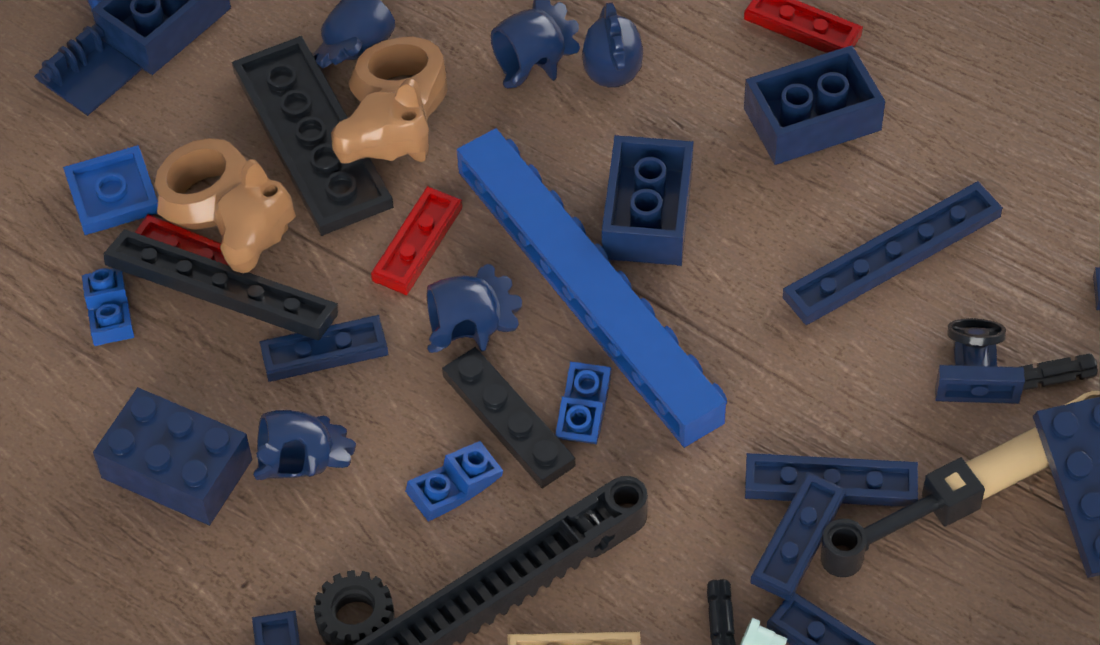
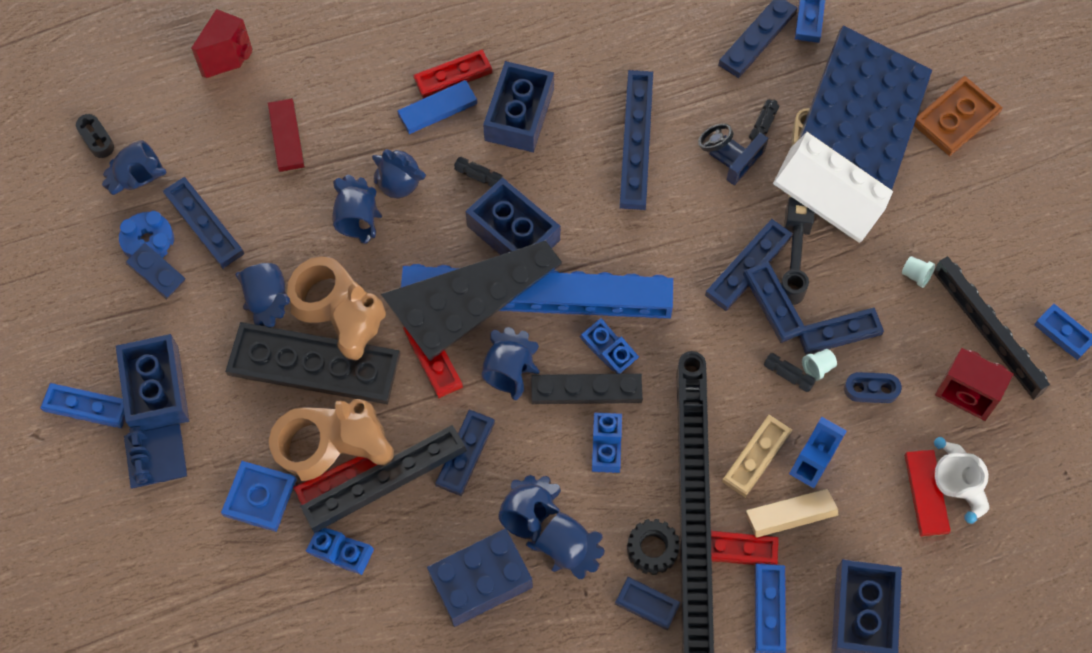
camera: 55 degrees left, 10 degrees up
(280, 514) = (569, 545): none -> dark blue piece
(496, 206) = (456, 302): none -> black wing
(695, 128) = (477, 171): none -> black axle
(743, 36) = (437, 107): none -> blue tile
(1016, 492) = (832, 187): none -> white slope

